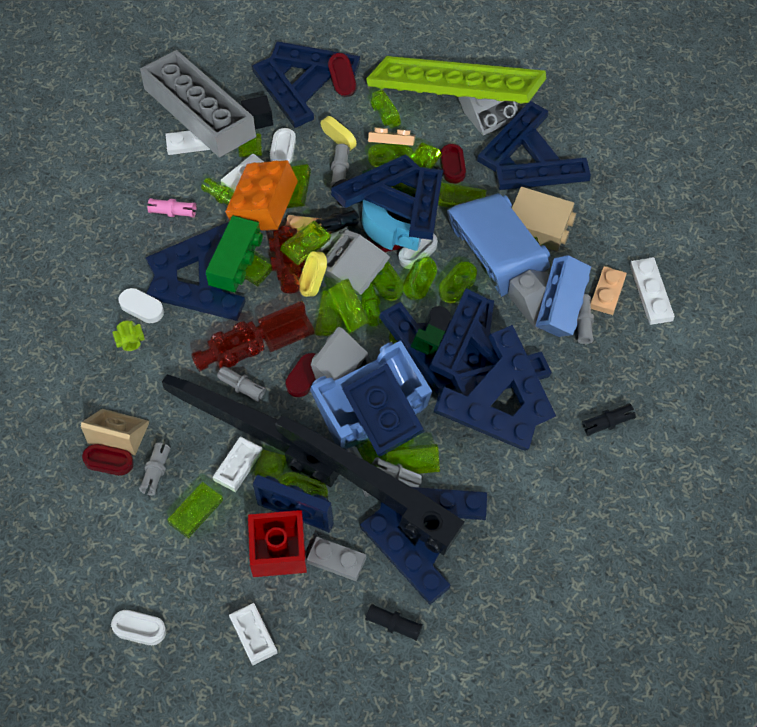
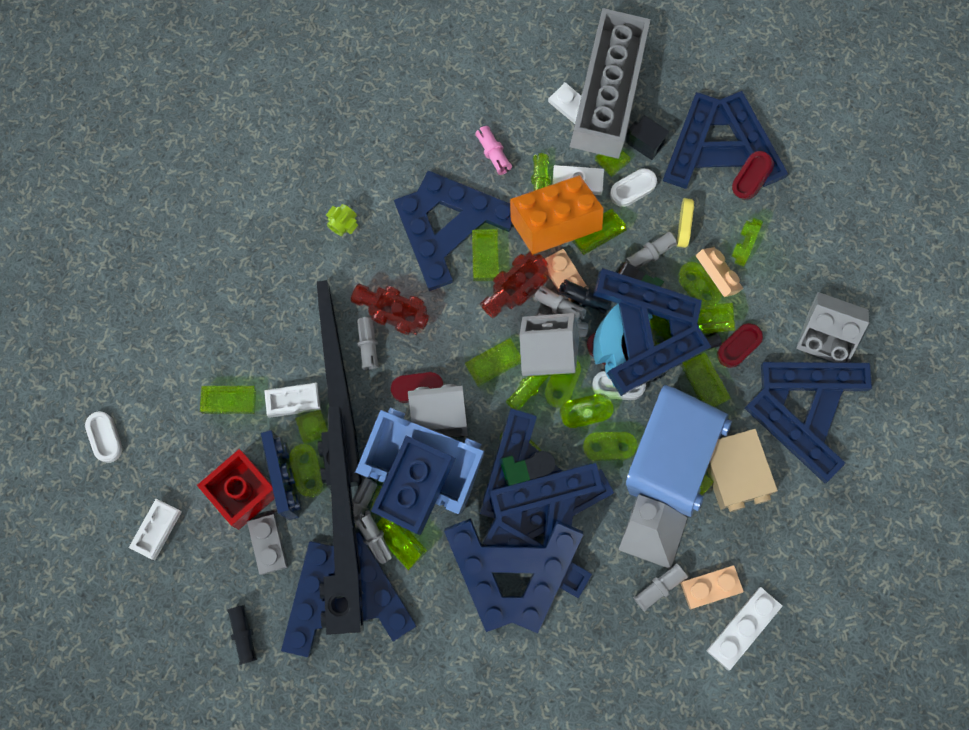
camera: 55 degrees right, 15 degrees up
(108, 459) = (225, 296): dark red tile -> none
(114, 430) = (252, 280): tan slope -> none
(141, 305) = (381, 205): white tile -> none
(155, 469) = (241, 339): light grey pin -> none
(234, 254) = (479, 239): green brick -> none
(286, 326) = (448, 337): clear red panel -> none
(305, 241) = (534, 289): clear neon green plate -> none
(313, 274) = (513, 318): light yellow tile -> none
(348, 305) = (505, 373): clear neon green plate -> none
(457, 79) = (826, 285): lime plate -> none
(563, 296) = (660, 555): medium blue brick -> none
(608, 419) = (569, 683): black pin -> none

